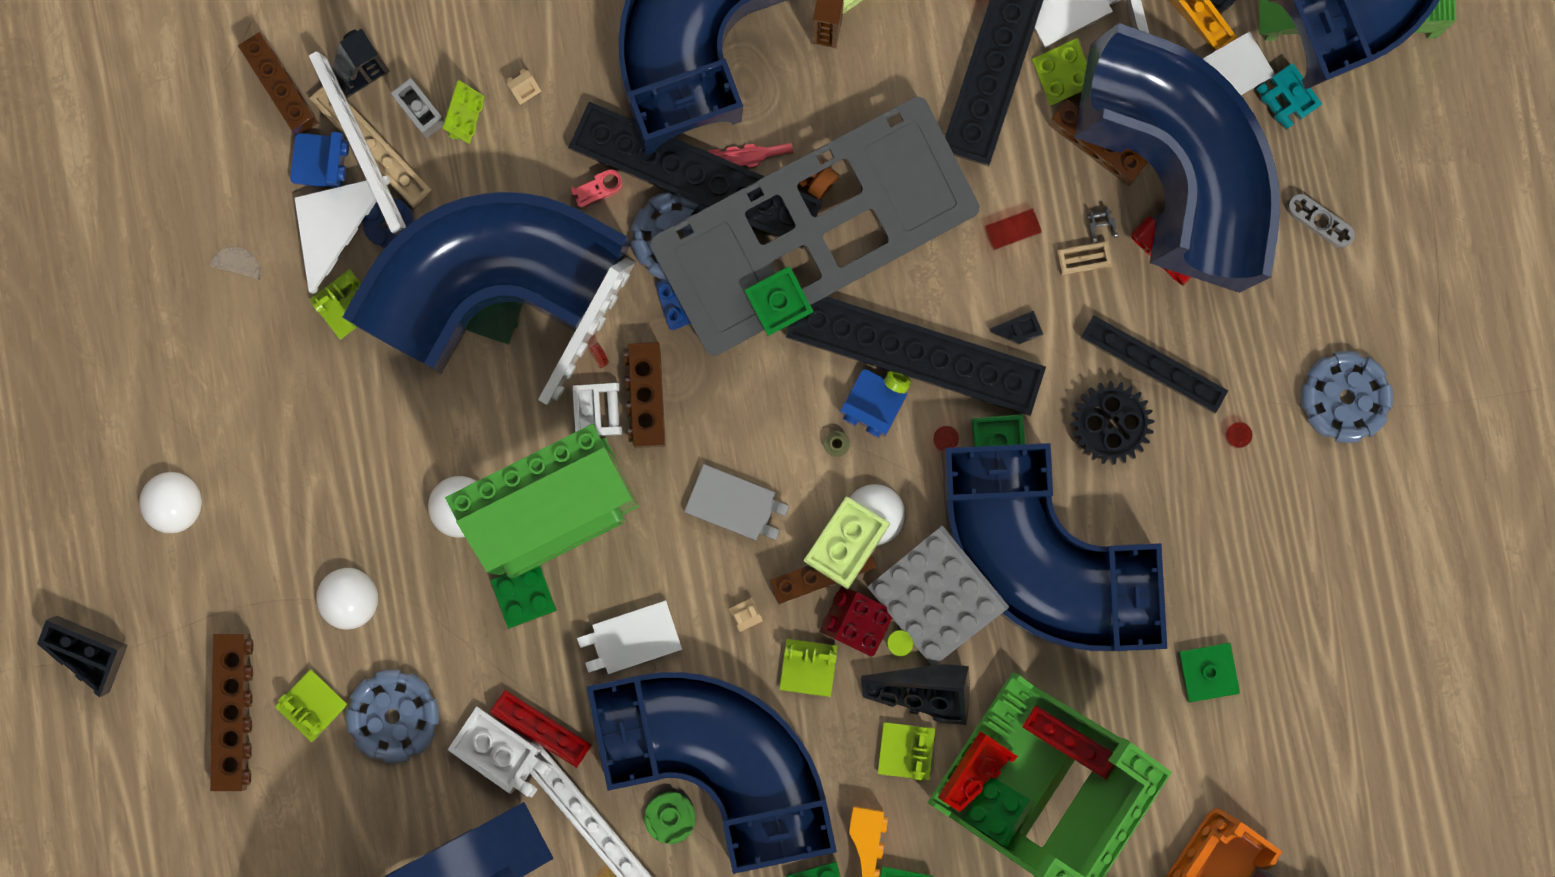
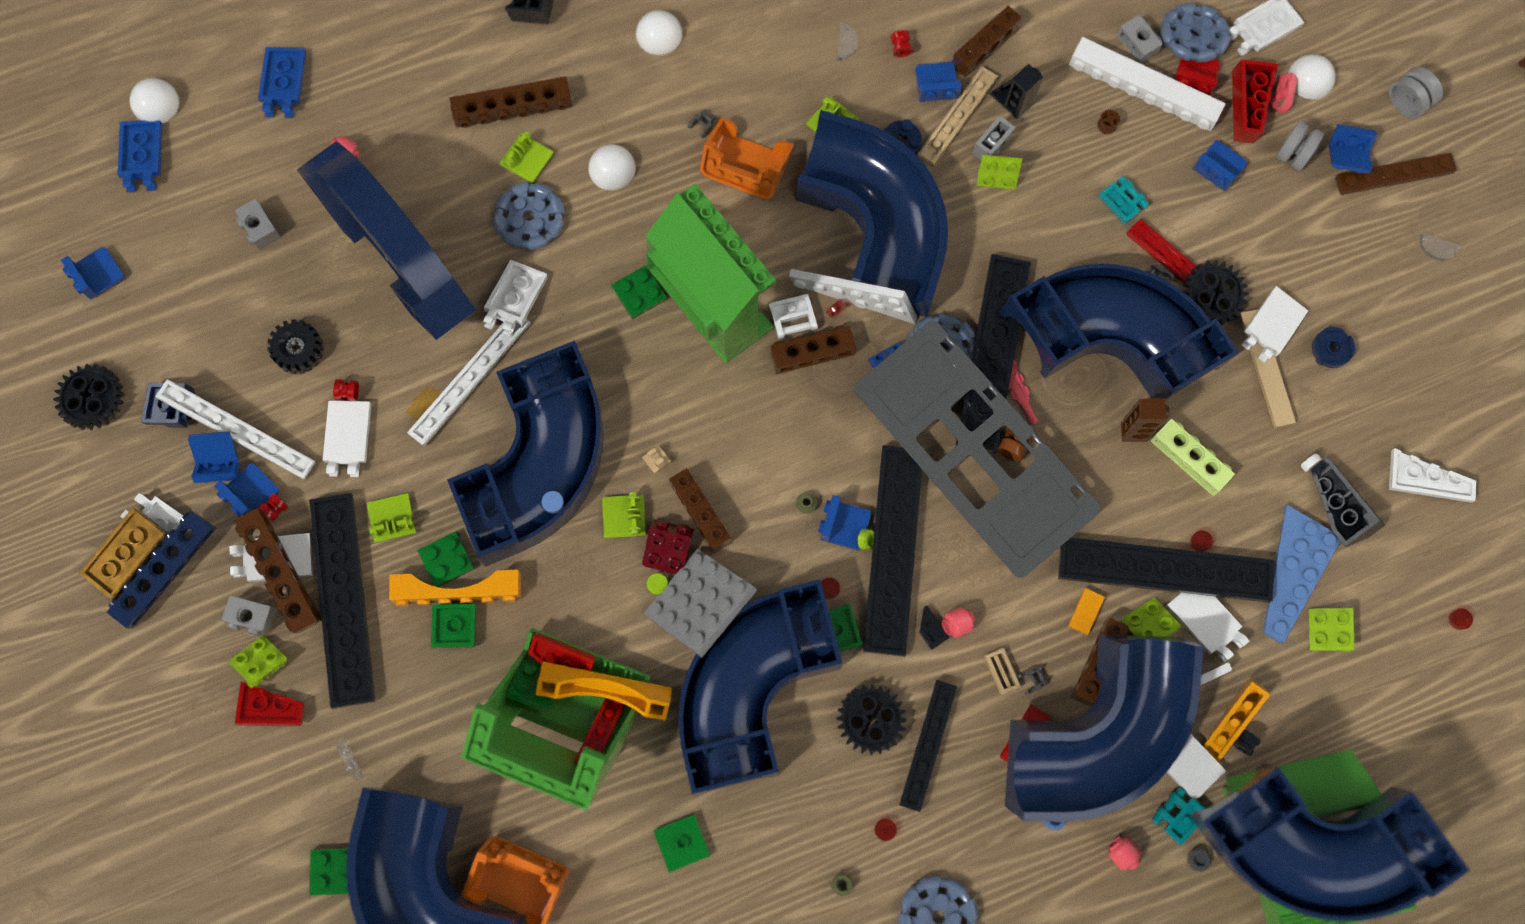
camera: 75 degrees right, 10 degrees down
(259, 193) = (900, 40): none -> red wheel
(304, 476) = (697, 118): none -> dark grey piece
(329, 223) = (891, 97): white tile -> none
(358, 143) = (956, 100): white tile -> none
(378, 427) = (743, 162): none -> orange windscreen
(496, 321) = (845, 231): clear green piece -> none
(523, 86) = (1029, 213): tan tile -> none
(540, 728) = (538, 322): red tile -> none
(595, 190) = (963, 282): coral piece -> none
(632, 638) = (621, 378): white tile -> none
(670, 817) = (486, 434): bright green tile -> none
(734, 504) = (741, 433): light grey tile -> none
(778, 301) = (909, 429): green plate -> none
(785, 750) = (552, 502): none -> medium blue tile
(847, 542) = (728, 520): yellowish green tile -> none
(885, 504) = (756, 545): white piece -> none
(906, 751) = (571, 606): lime hinge -> none
(932, 690) = (624, 616): black wedge -> none
(1004, 776) = (563, 681): none -> light orange arch
(1013, 229) = (1011, 608): clear red tile -> none
(1019, 295) = (958, 622): none -> coral head
(1034, 143) = (1086, 611): none -> light orange tile
(1298, 494) = (849, 887): none -> olive plate
(1319, 170) = (1124, 853): none -> coral head
(1332, 237) = (1071, 878): light grey beam -> none
(1340, 88) = (1199, 859): none -> dark grey tile

